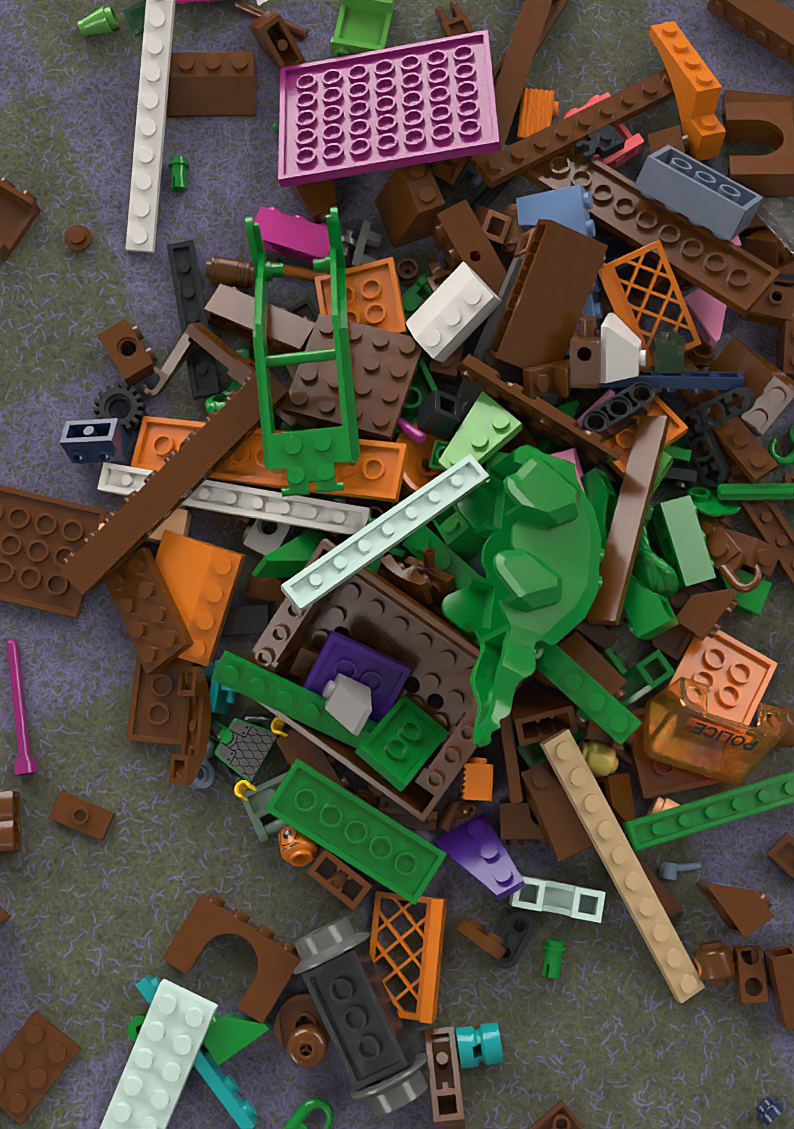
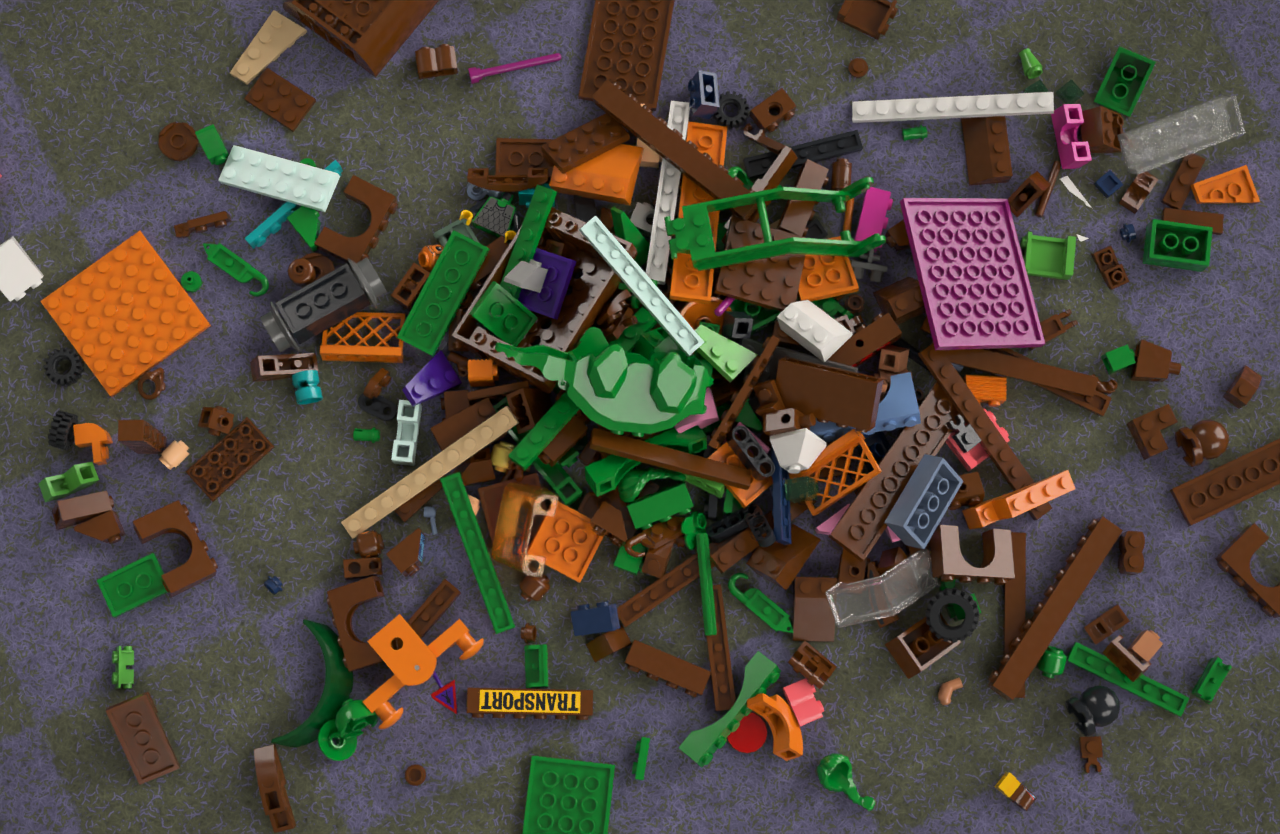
camera: 80 degrees right, 0 degrees up
(82, 815) = (444, 115): reddish brown plate -> none
(702, 355) = (812, 521): reddish brown plate -> none

